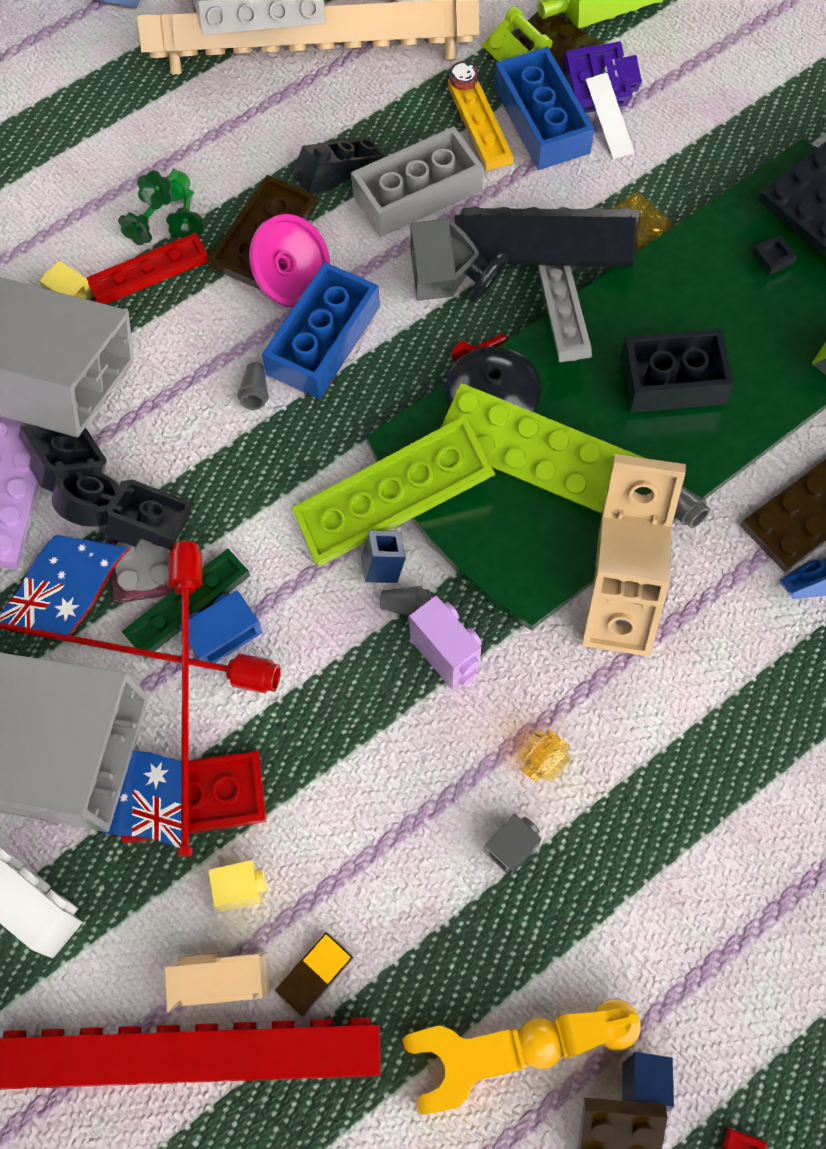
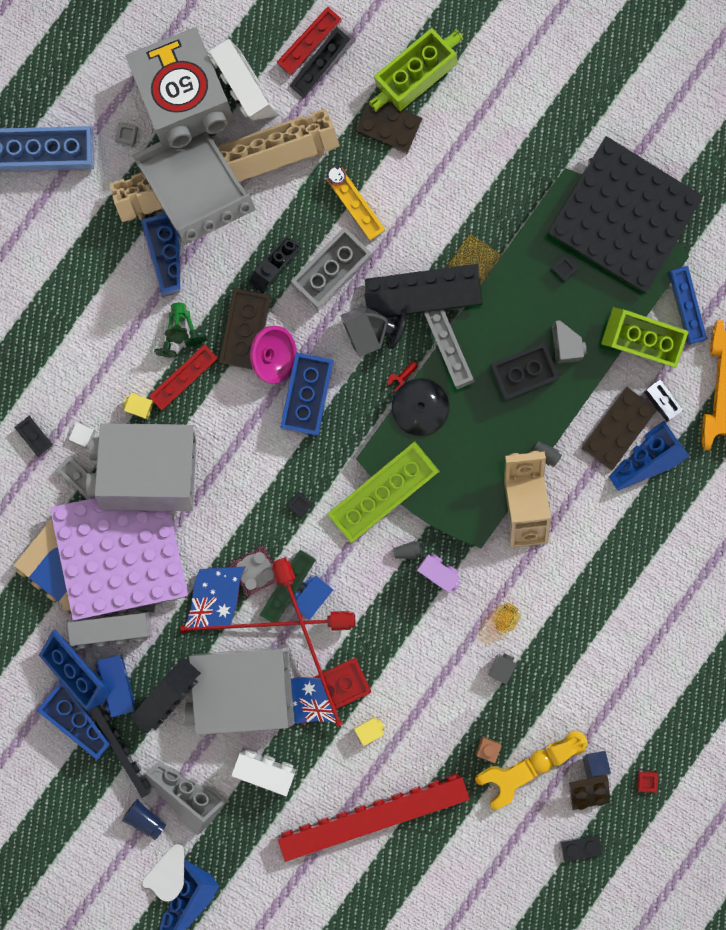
camera: 20 degrees left, 20 degrees up
(88, 497) = (237, 546): black plate -> none
(189, 103) = (164, 252): none -> blue wedge
(216, 979) = (377, 779): tan piece -> none
(253, 388) = (277, 440): dark grey cone -> none
(255, 488) = (300, 504): none -> black tile
(314, 974) = (421, 760): dark brown tile -> none
(383, 556) = (388, 531): dark blue brick -> none
(444, 987) = (488, 749): none -> nougat brick
(504, 45) = (359, 141): lime plate -> none
(538, 448) = (458, 444): lime plate -> none
(543, 108) = (394, 187): blue brick -> none
(597, 60) = (425, 151): dark purple piece -> none
(610, 116) = (438, 179): white sticker -> none
(758, 345) = (567, 344): none -> light grey slope

